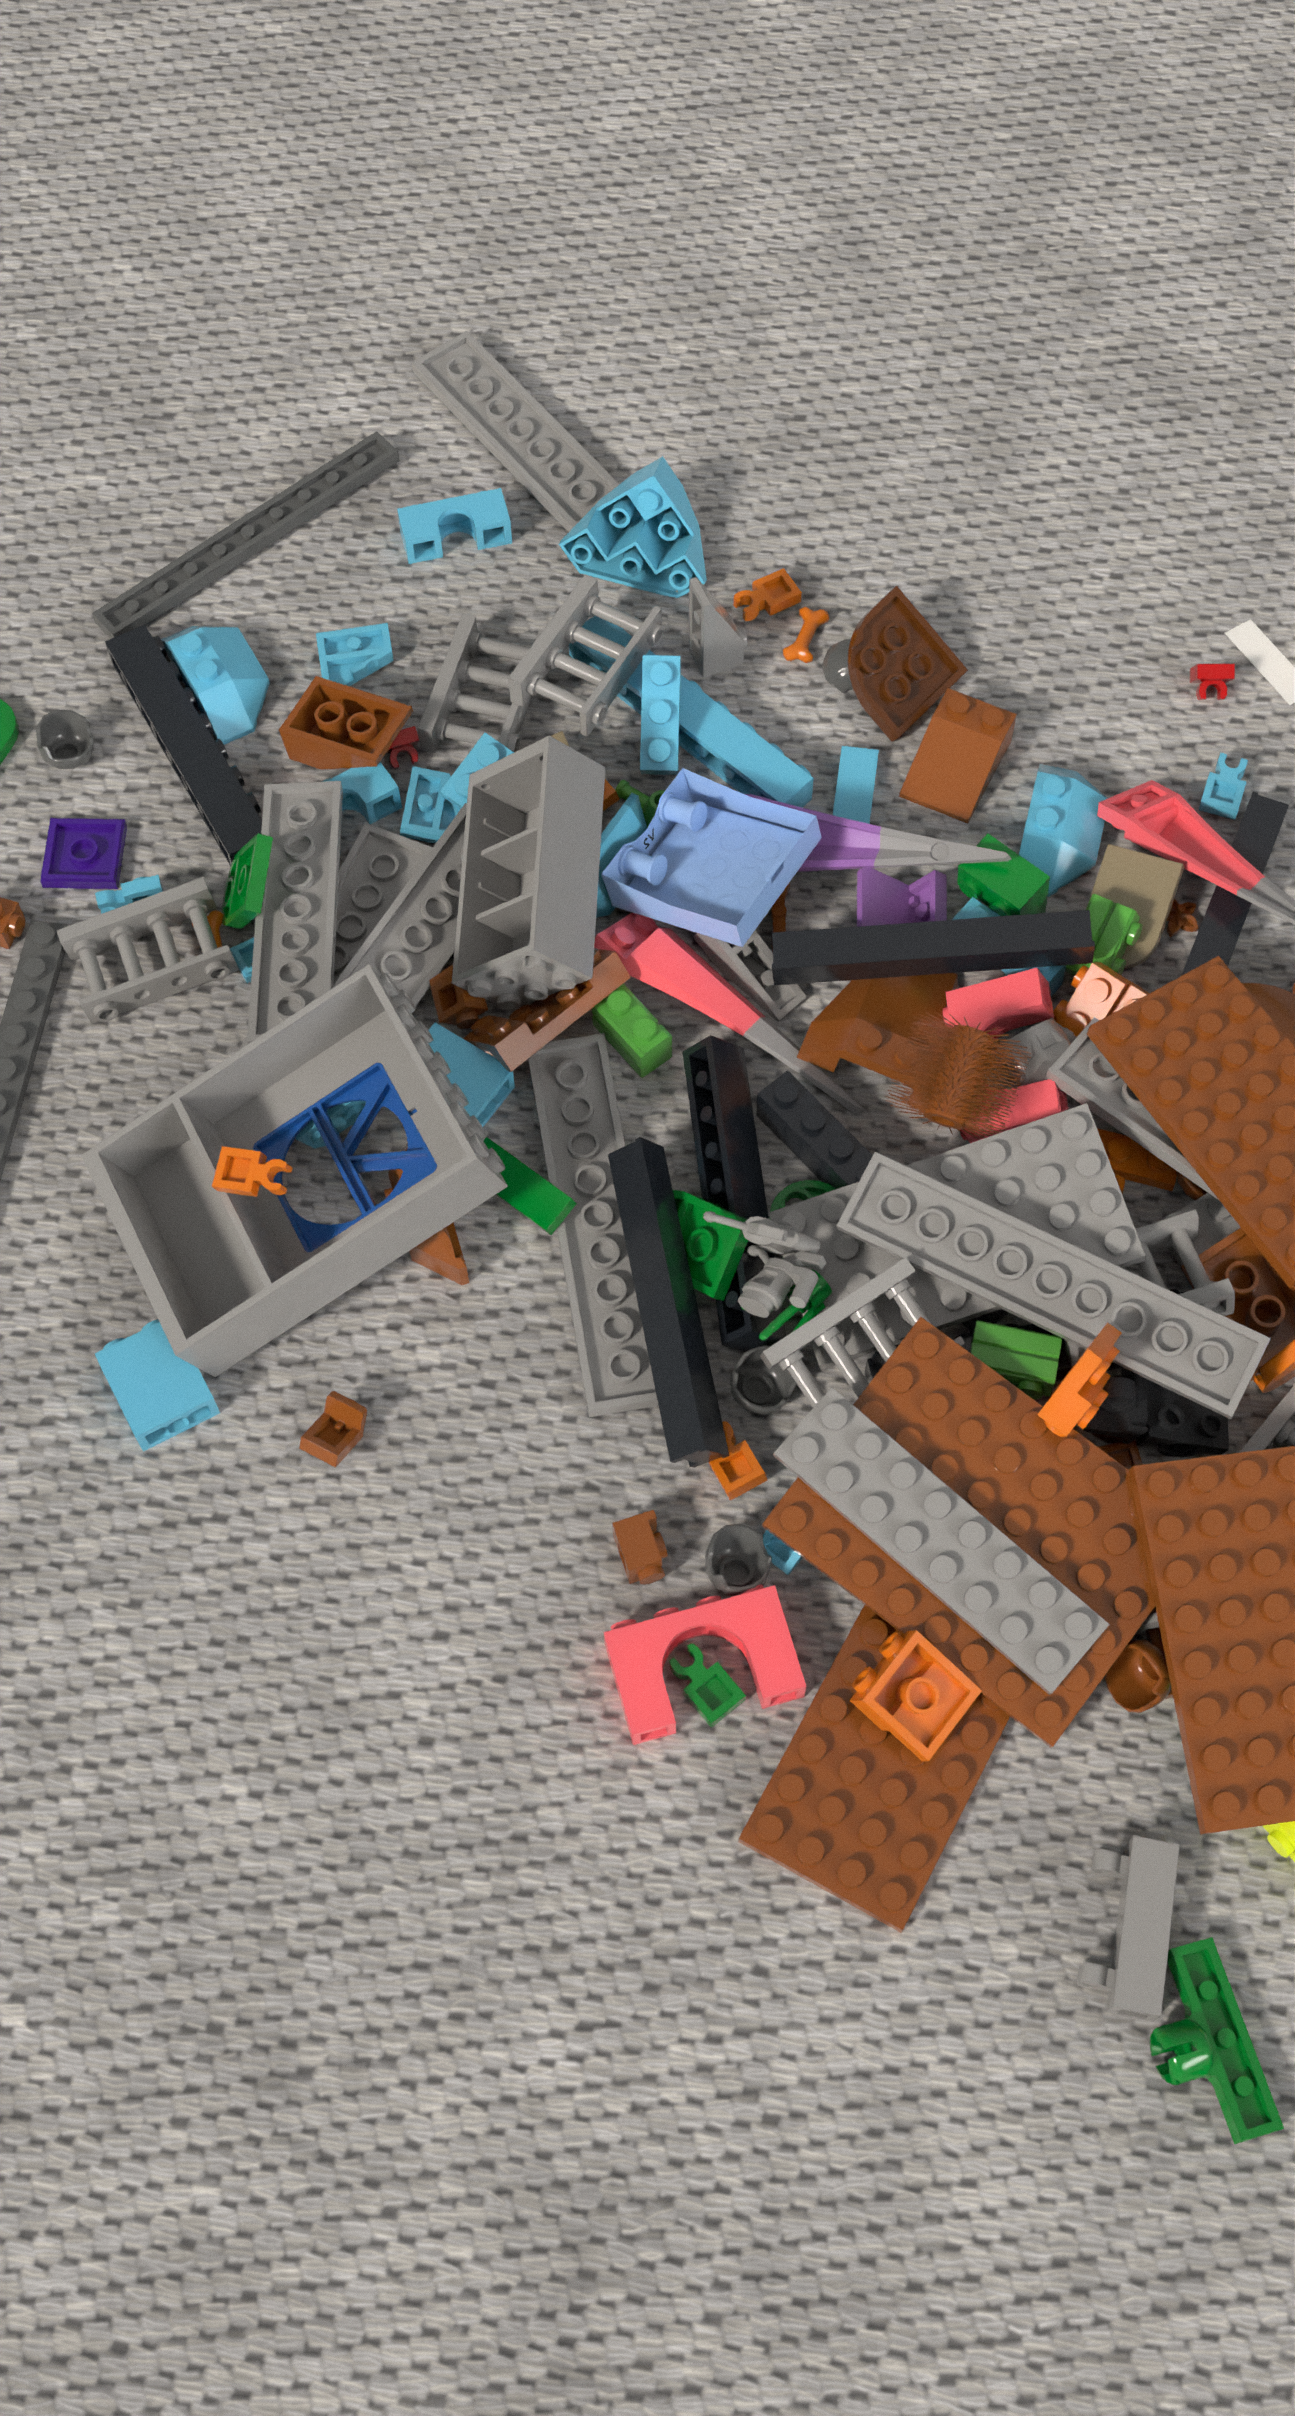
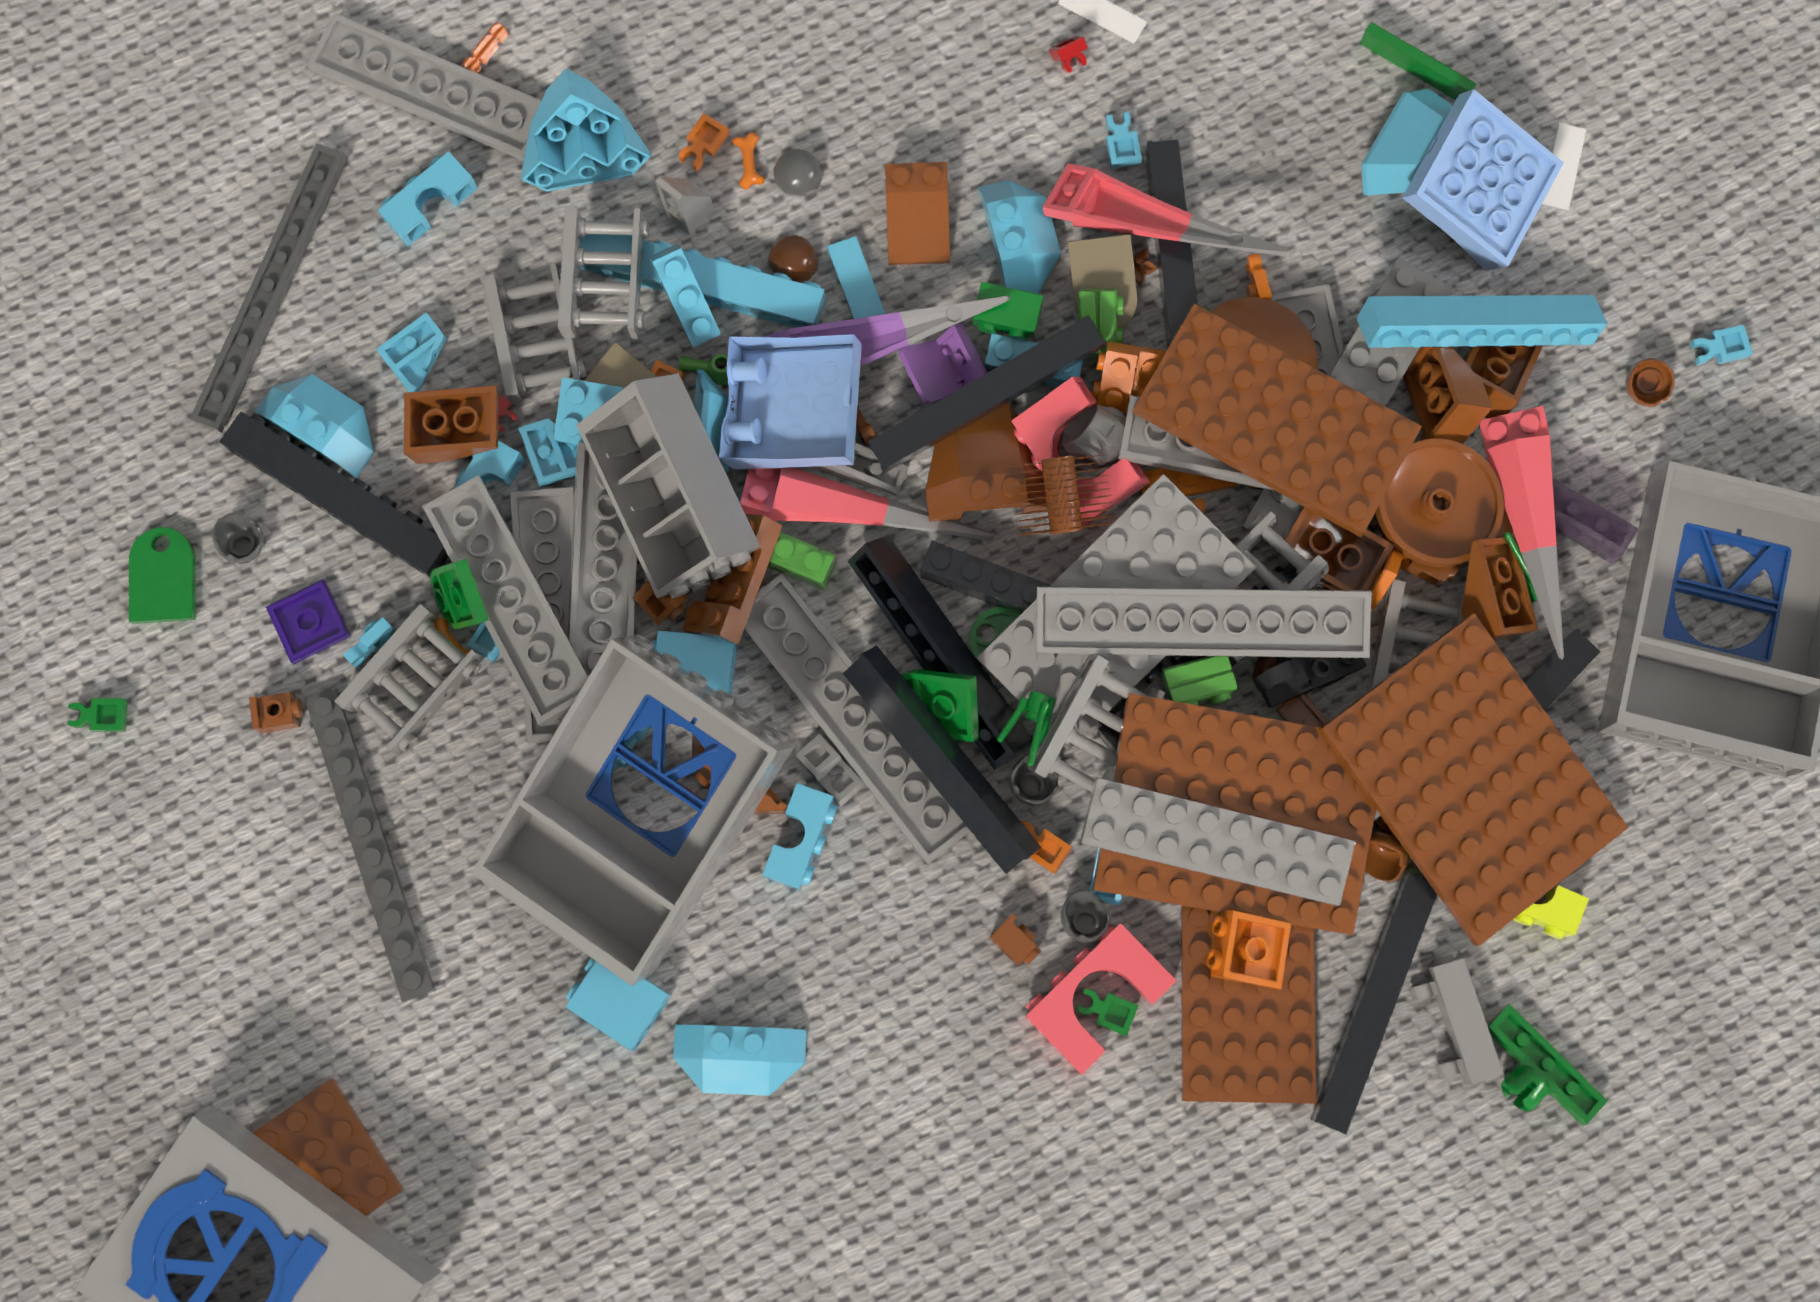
camera: 25 degrees left, 15 degrees up
(245, 1170) = (608, 835): orange plate -> none
(254, 1513) = (739, 1057): none -> medium azure wedge
(335, 1430) = (762, 969): dark orange bracket -> none
(438, 1337) = (793, 865): none -> medium azure arch
(531, 1193) = (800, 724): green tile -> none
(538, 1264) = (830, 770): none -> light grey slope
(598, 423) = (485, 48): none -> orange axle
(768, 1234) = (993, 679): light grey piece -> none
(771, 1285) = (1013, 719): light grey piece -> none
(801, 740) = (793, 257): none -> reddish brown hair
(899, 664) = (836, 158): reddish brown plate -> none
(1037, 1847) = (1374, 1004): none -> black tile
(1082, 1390) = (1261, 688): orange plate -> none

